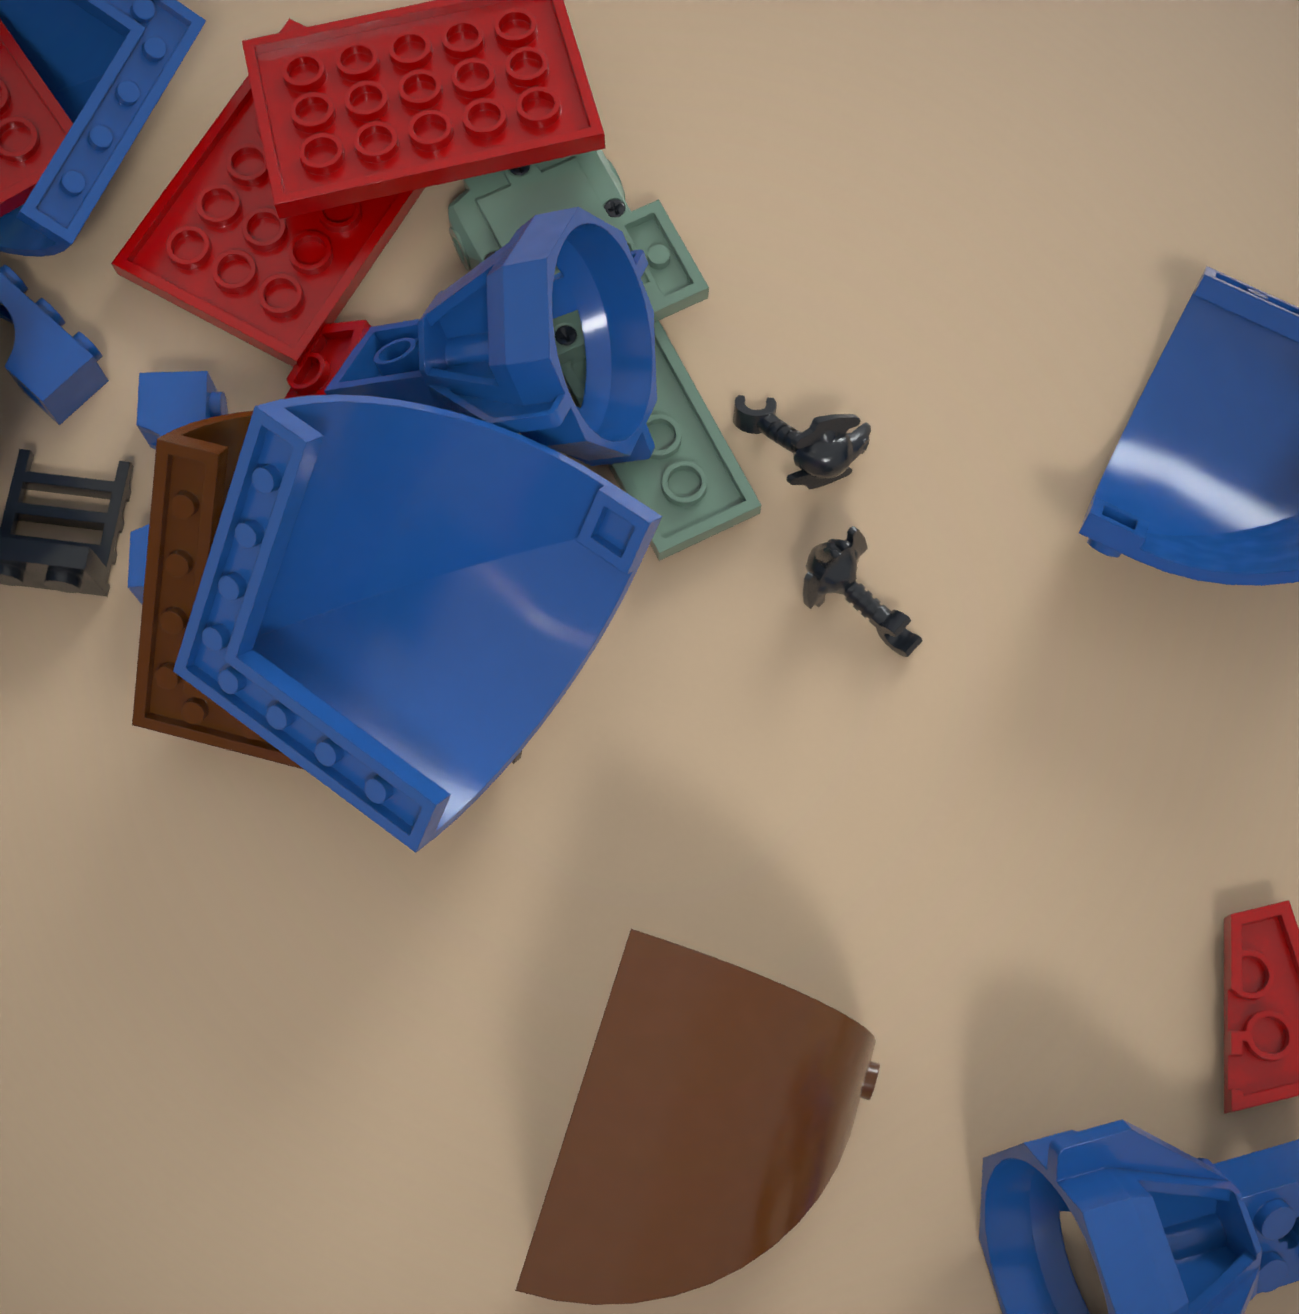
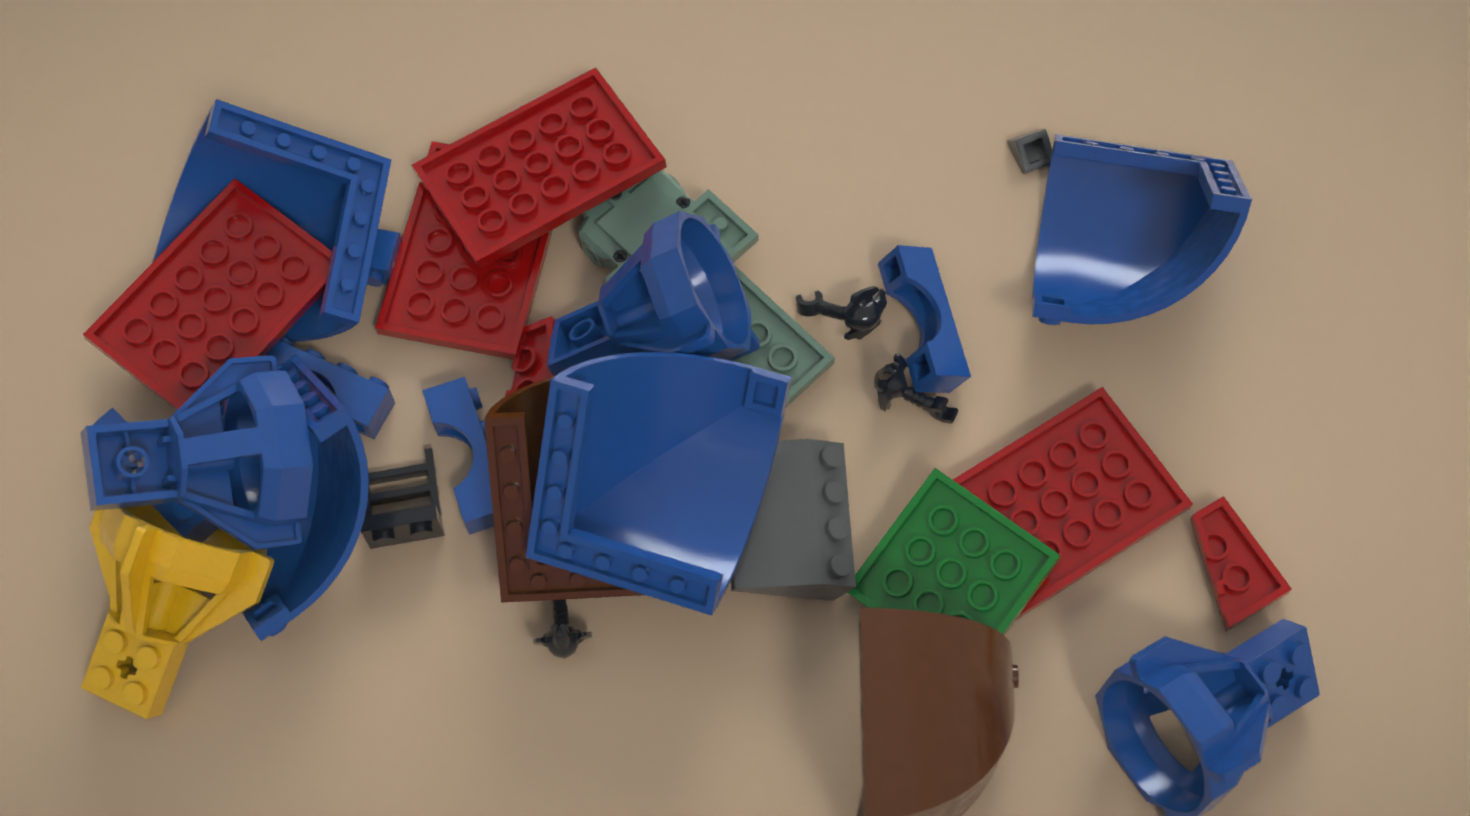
camera: 15 degrees left, 5 degrees down
(153, 160) = (383, 257): none -> blue brick
(213, 805) = (562, 638): none -> black piece
(619, 746) = (802, 526): none -> dark grey slope
(830, 882) = (954, 559): none -> green plate
(920, 424) = (915, 281): none -> blue arch
(1021, 833) = (1080, 488): none -> red plate
(1163, 282) = (1031, 150): none -> dark grey slope

